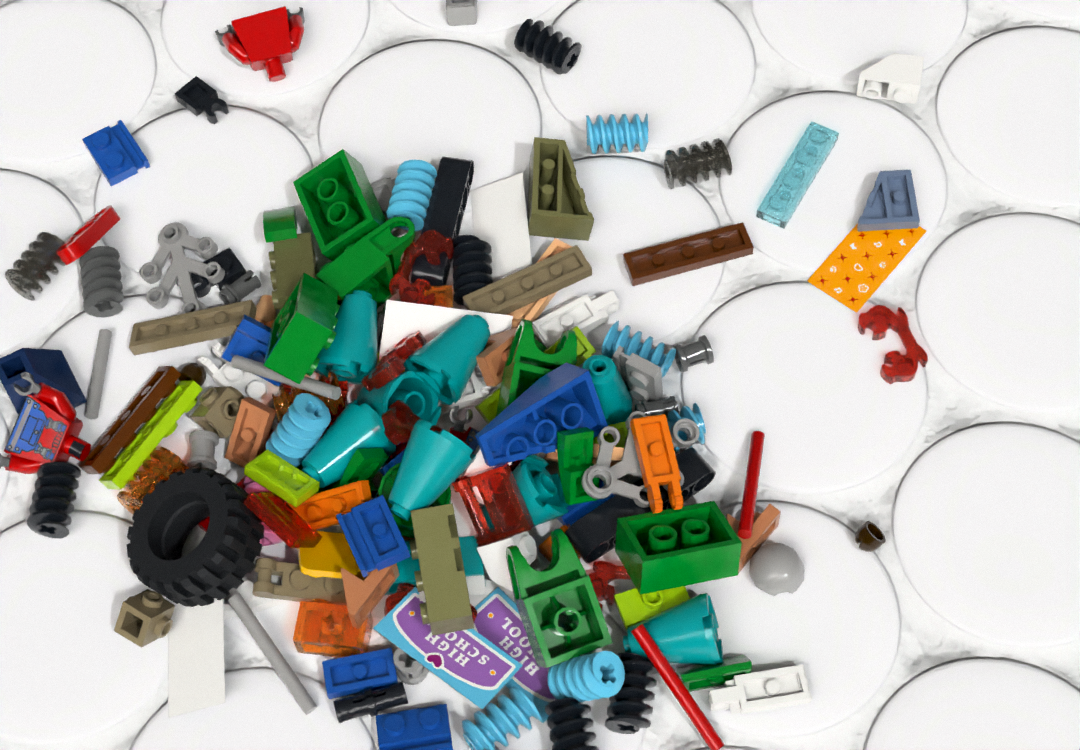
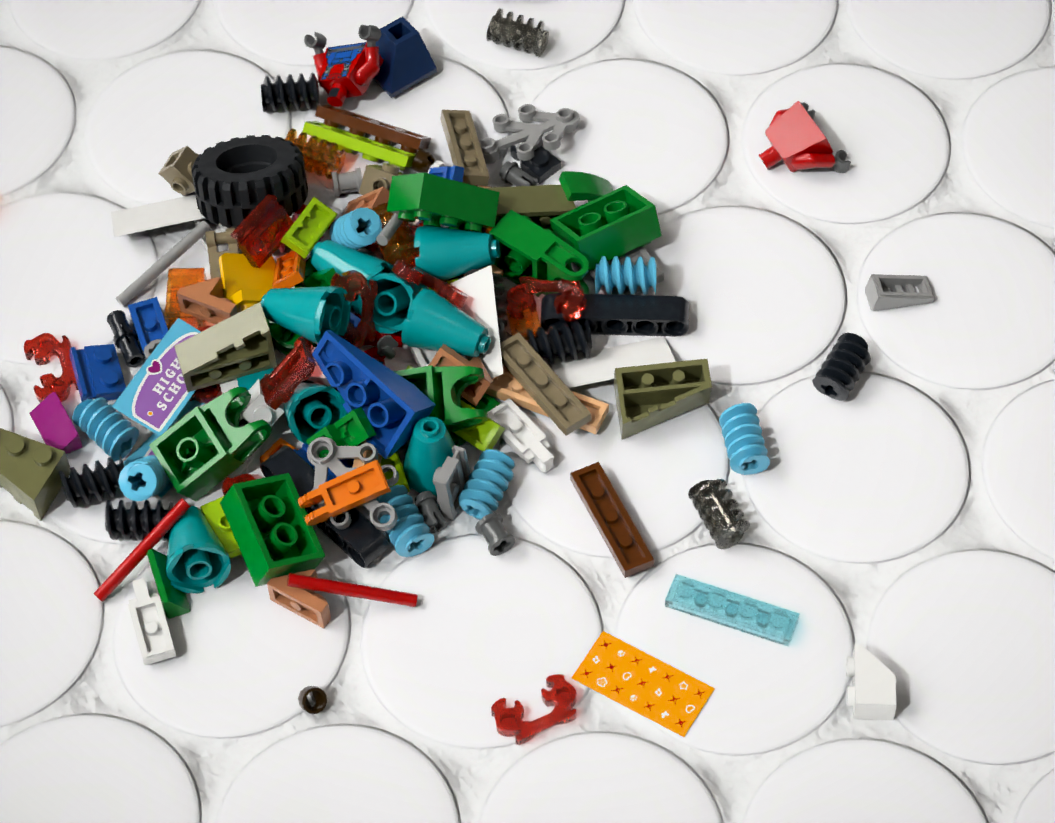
camera: 80 degrees right, 5 degrees down
(88, 235) = (548, 55): red beam -> none
(98, 374) = (420, 99): light grey bar -> none
(101, 281) = (507, 76): dark grey piece -> none
(116, 153) = (654, 62): blue plate -> none
(201, 97) = (724, 106): black plate -> none
(373, 536) = (243, 287): blue plate -> none
(776, 569) = (273, 627): light grey hair -> none
(891, 203) = (705, 694): sand blue wing -> none

